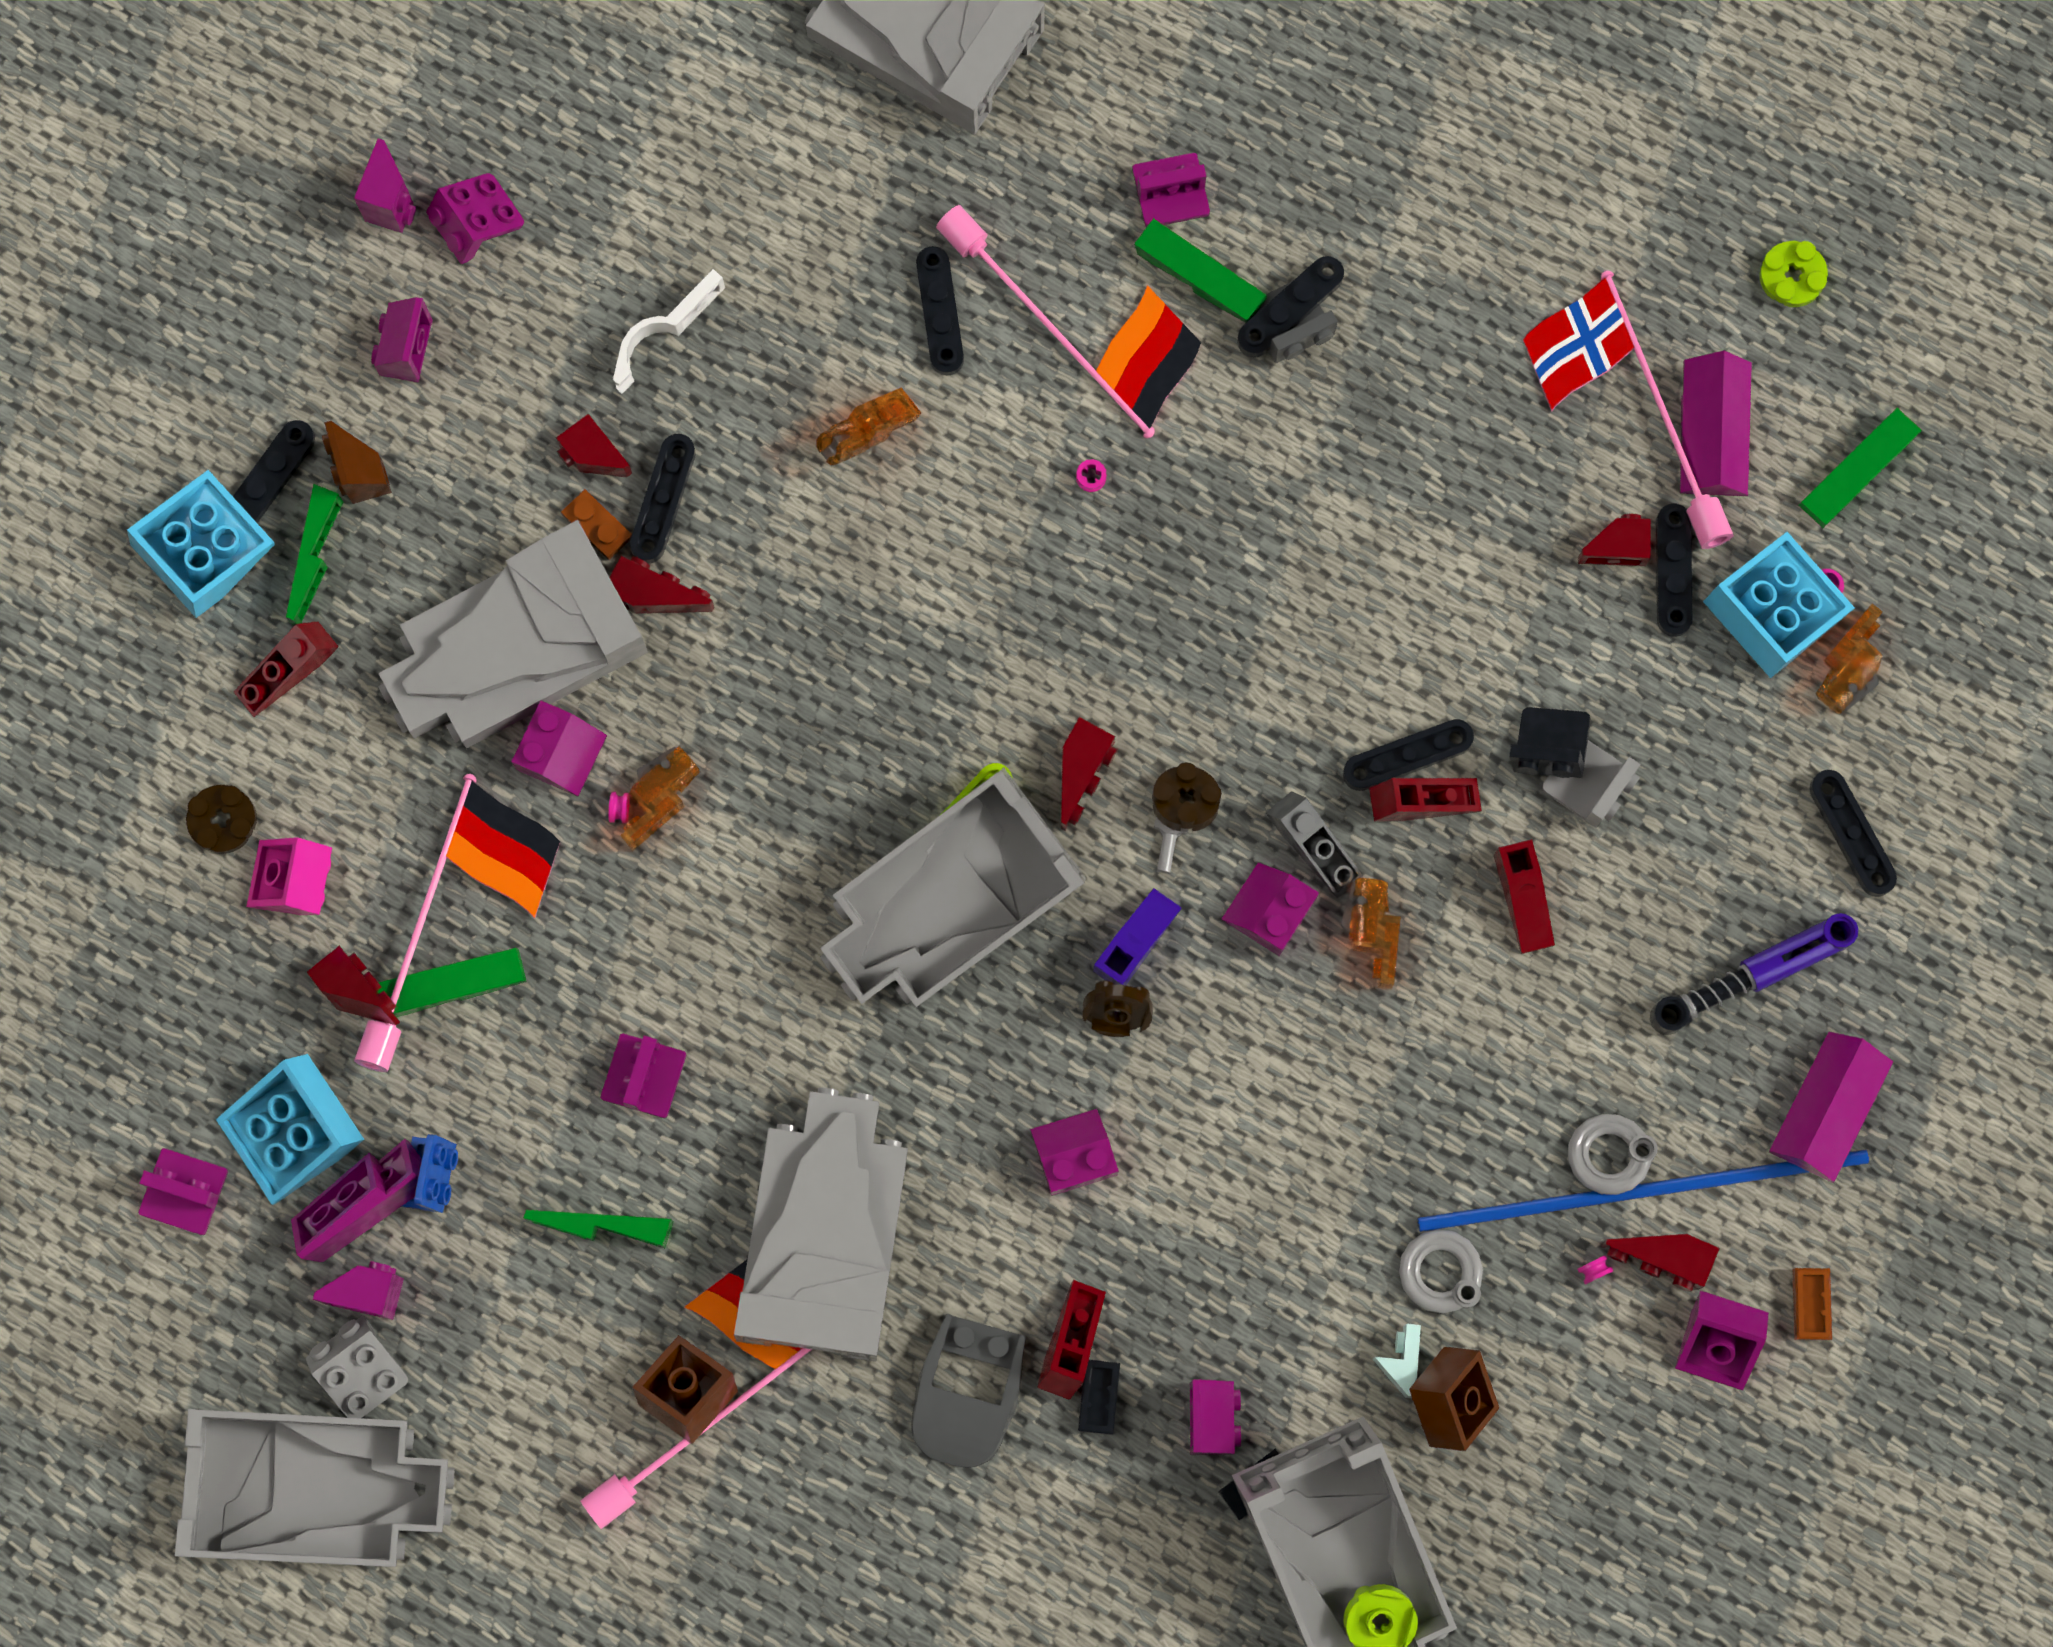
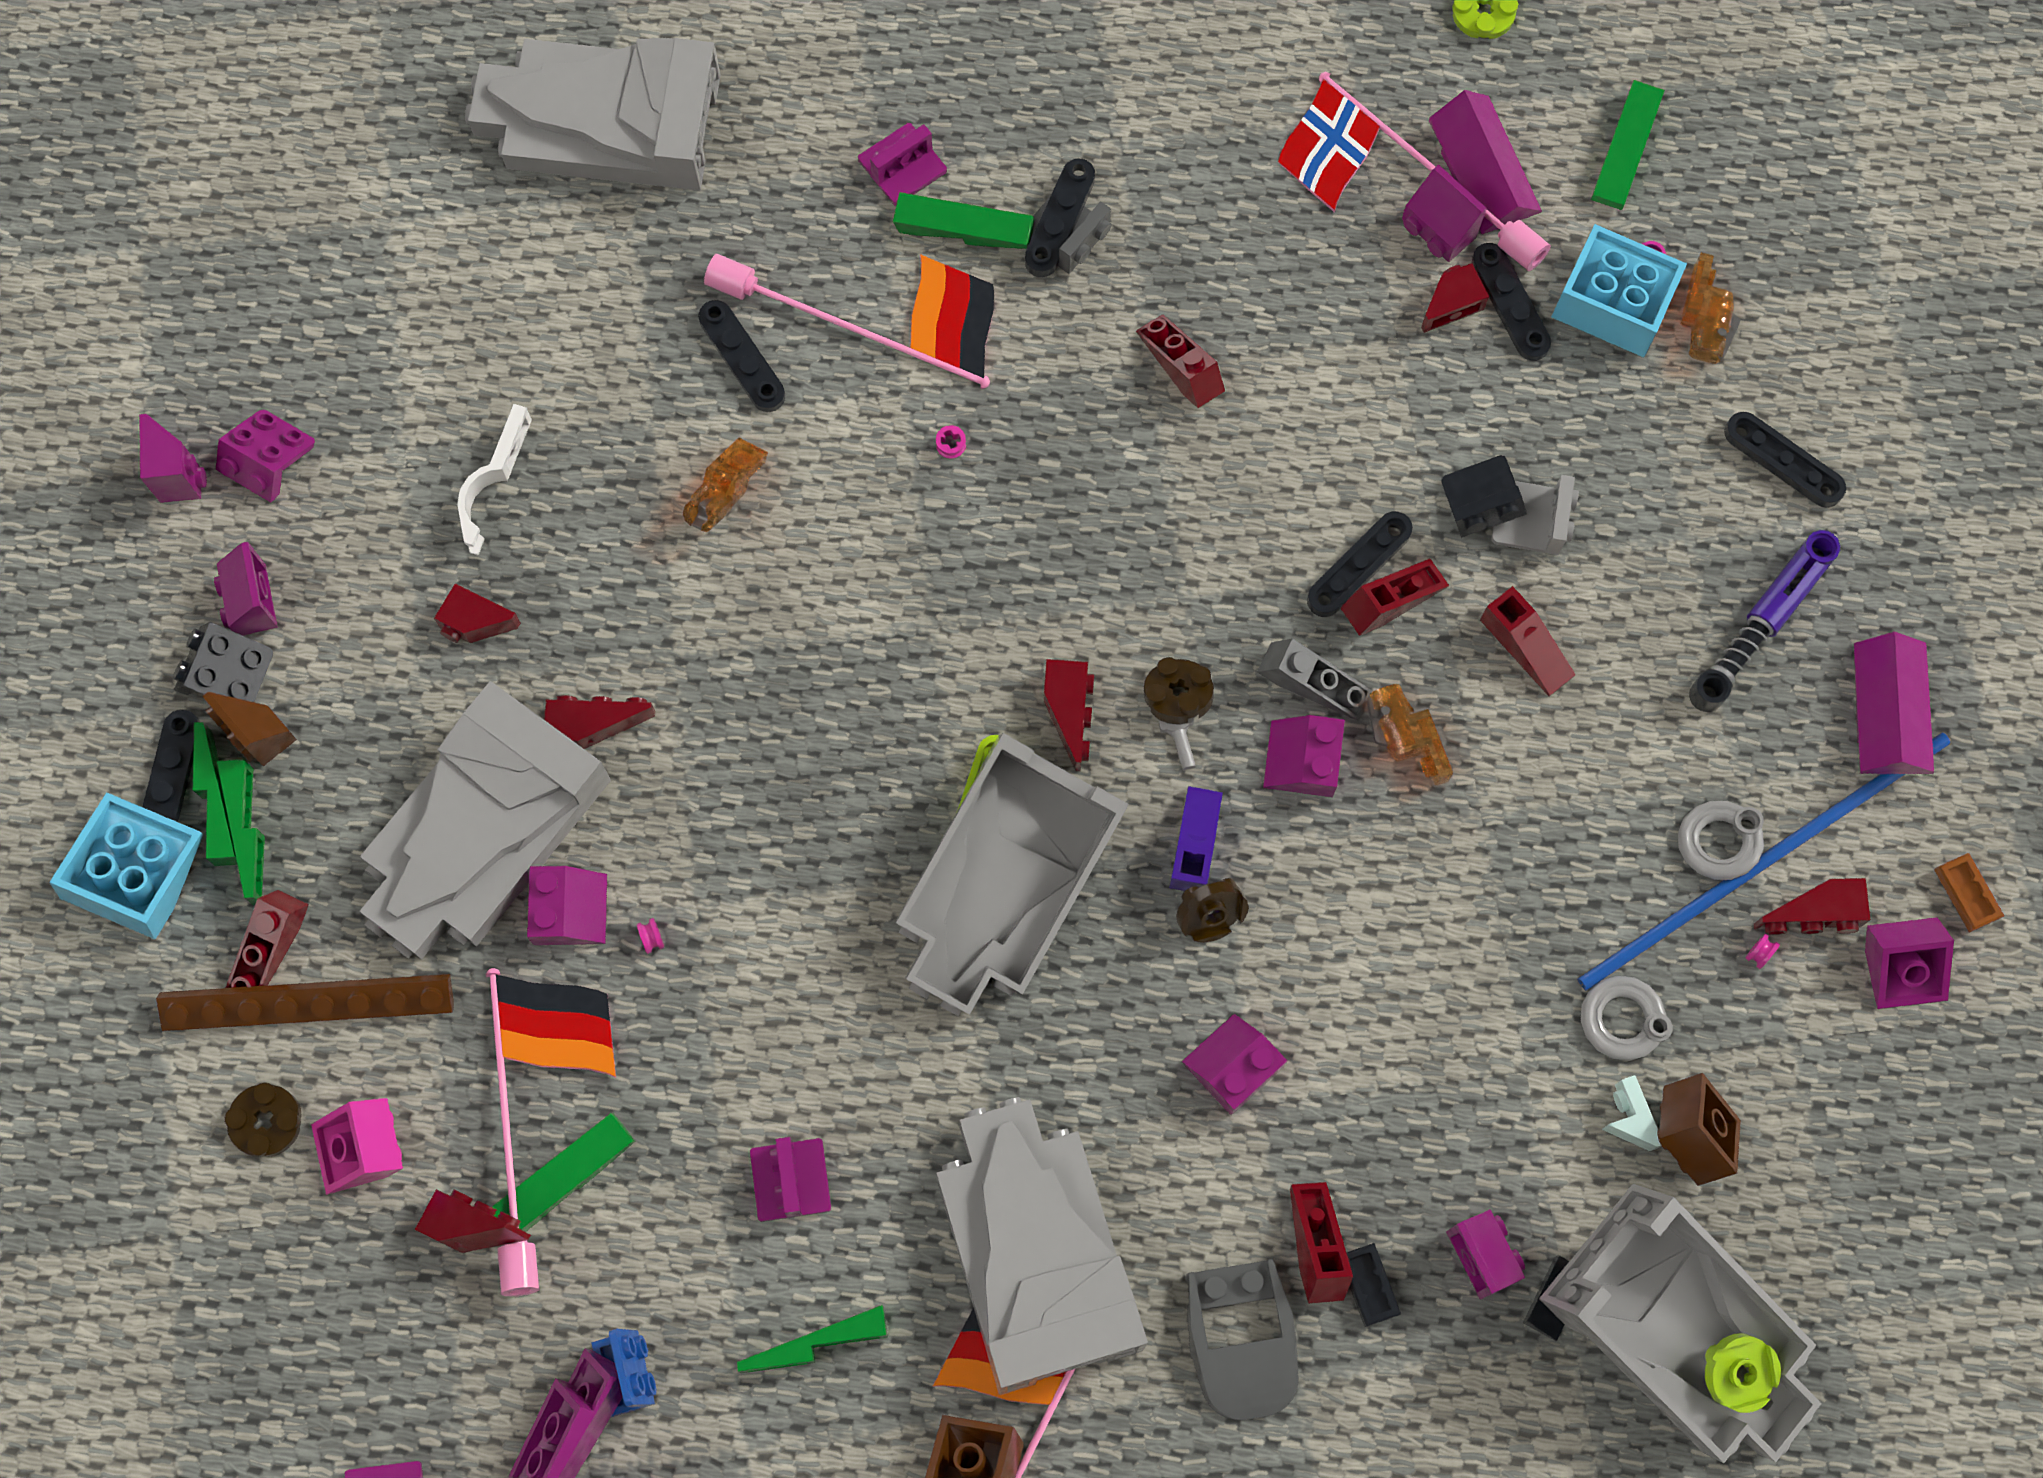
camera: 25 degrees left, 5 degrees down
(289, 1127) = (464, 1391): medium azure slope -> none
(296, 500) = (208, 786): none -> green slope
(300, 732) = (305, 1002): none -> reddish brown plate
(355, 397) = (222, 664): none -> bracket
(598, 524) = (518, 683): dark orange plate -> none
(657, 794) = (681, 907): clear orange plate -> none
(663, 498) = (560, 631): black plate -> none
(1338, 492) = (1183, 360): none -> dark red slope
(1647, 461) = (1443, 214): none -> magenta slope

